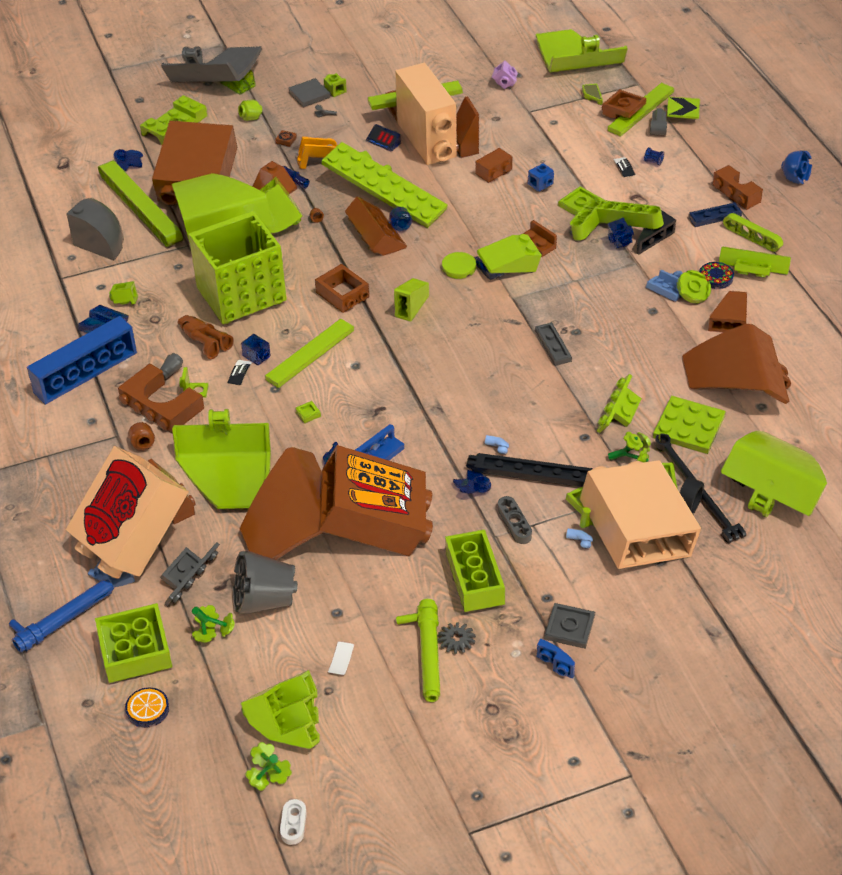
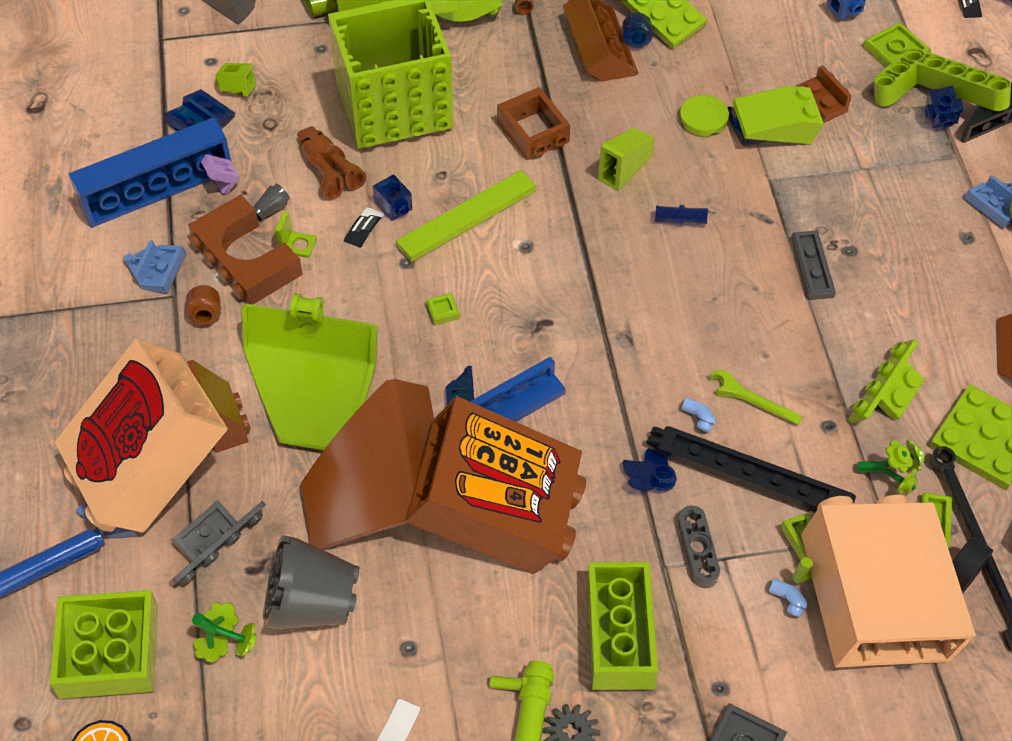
camera: 10 degrees right, 10 degrees up
(100, 419) = (156, 266): none -> medium blue slope
(131, 352) = (221, 172): none -> lavender bracket
(457, 327) = (681, 214): none -> clear blue pin
(517, 426) = (733, 389): none -> lime piece

